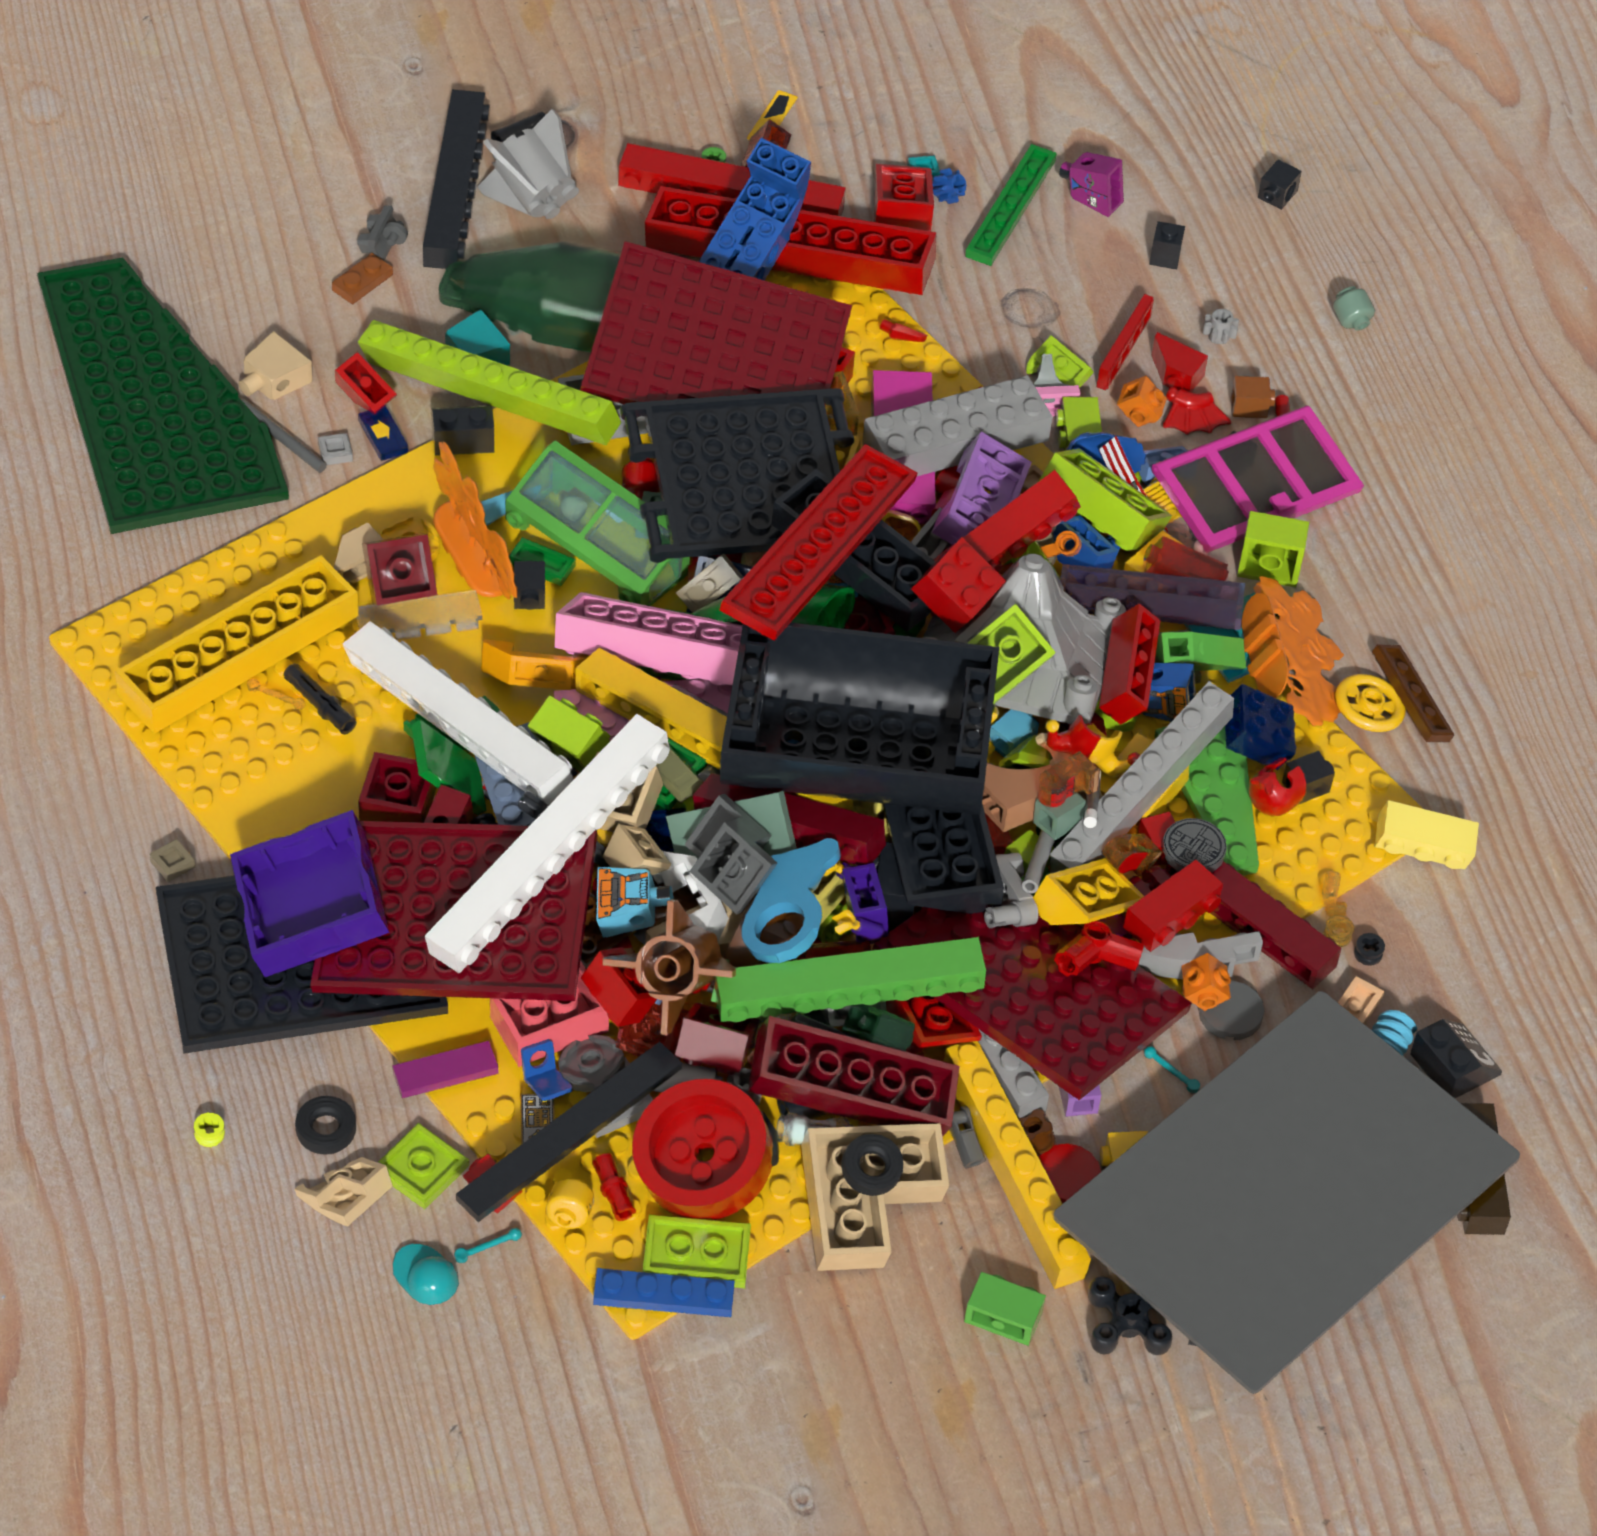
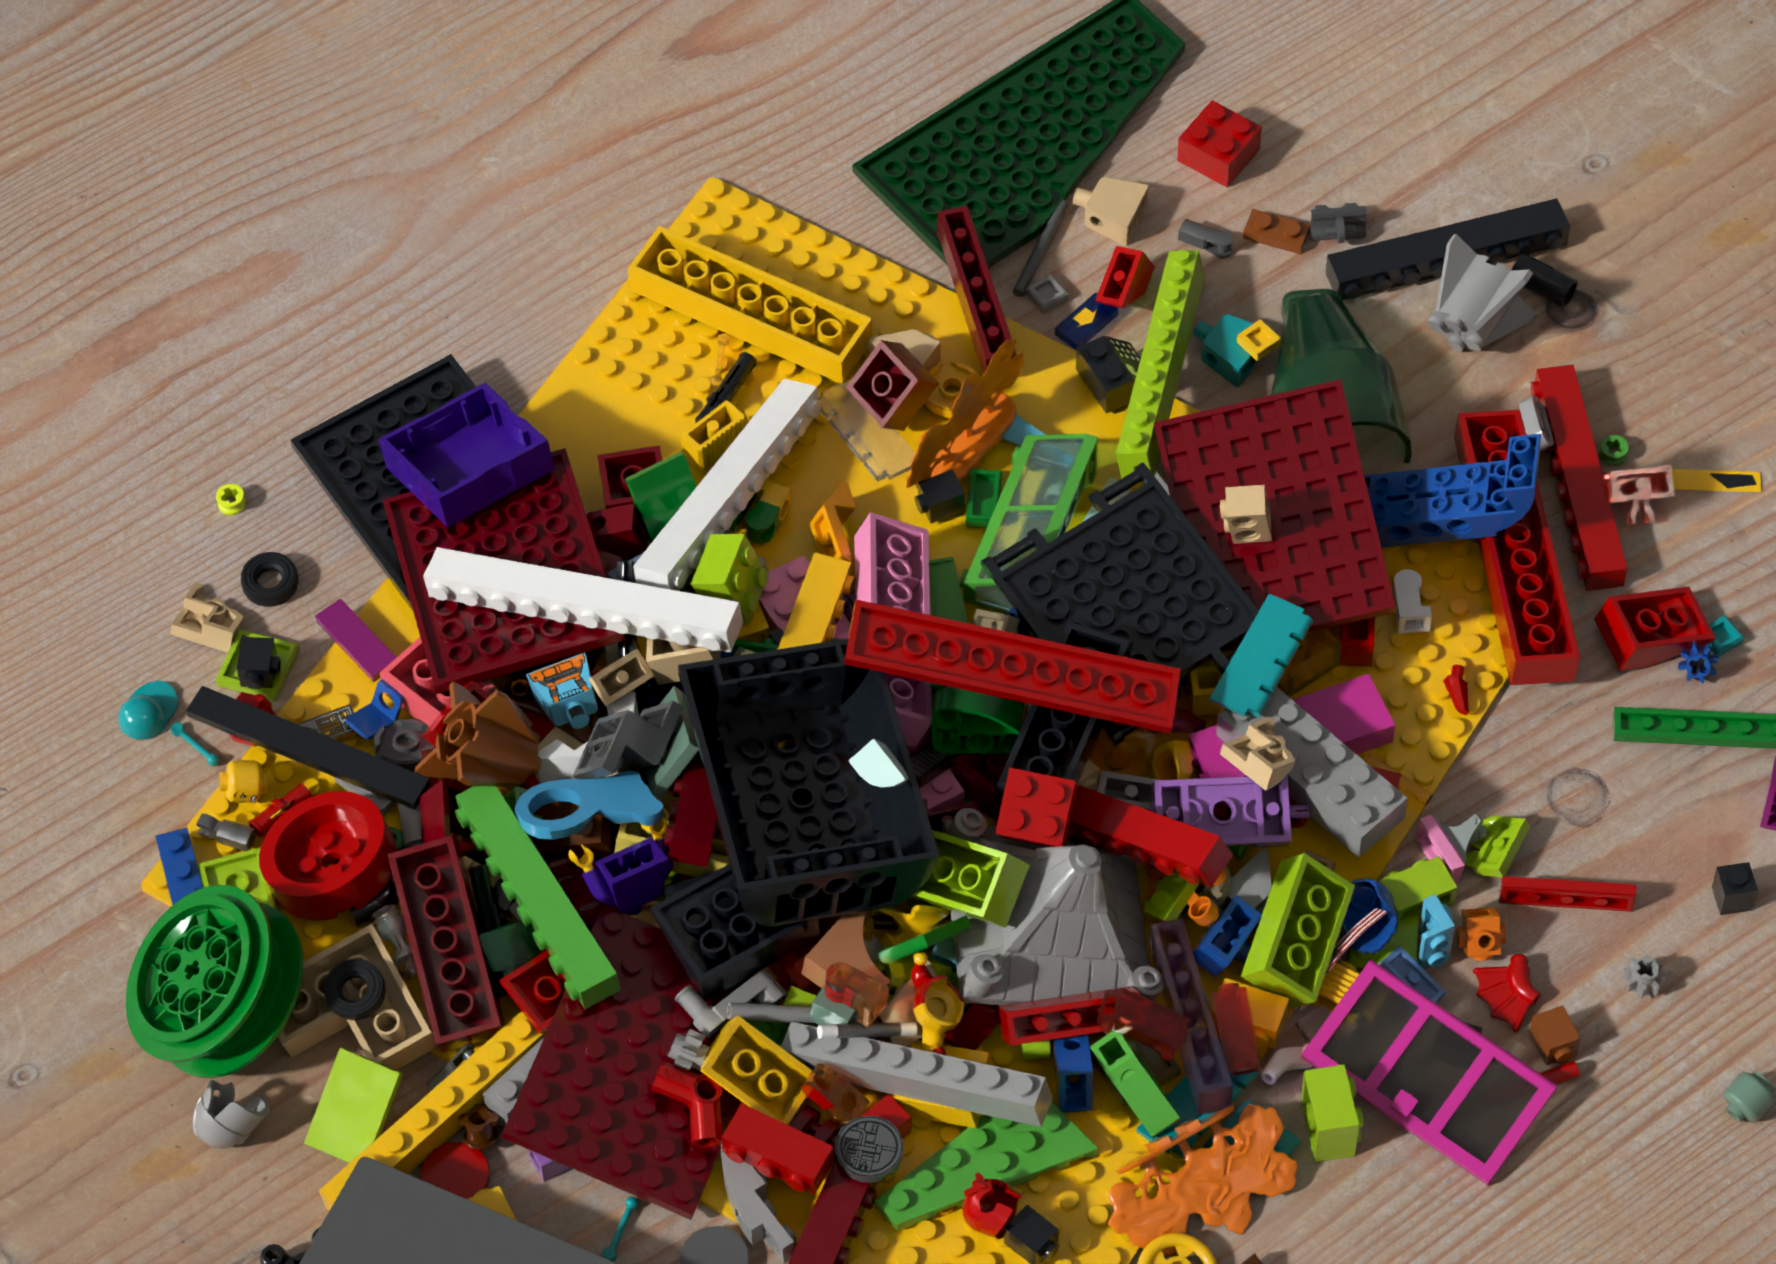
camera: 75 degrees right, 5 degrees up
(172, 860) = (501, 360): dark tan plate -> none
(250, 275) = (1219, 143): none -> red brick
(326, 480) = (972, 283): none -> dark red brick
(343, 323) = (1206, 238): none -> dark grey bar
(374, 717) = (712, 435): none -> yellow brick
(435, 1153) = (258, 662): none -> black brick
(490, 318) = (1258, 340): none -> yellow tile
(618, 1237) = (227, 832): none -> flat silver bar
(676, 181) = (1536, 421): none -> light grey beam
(726, 349) = (1246, 514): none -> tan brick
(853, 404) = (1256, 658): none -> teal windscreen
(876, 1263) = (214, 981): none -> green wheel
(899, 647) = (878, 765): none -> light aqua brick
(945, 1327) = (225, 1122): none -> light grey helmet
(956, 438) = (1260, 754): none -> tan slope
(977, 1220) = (353, 1105): none -> lime tile
(1005, 1308) = (276, 1166): bright green brick -> none
(1028, 722) = (924, 940): none -> green tile
(1051, 933) = (688, 1050): none -> light grey gear
(1135, 420) = (1436, 933): none -> medium azure bracket
(1170, 610) = (1143, 1021): none -> clear red brick
(1178, 363) = (1560, 953): red slope -> none
(1206, 982) = (714, 1216): orange brick -> none
(1261, 727) = (1065, 1168): clear blue brick -> none

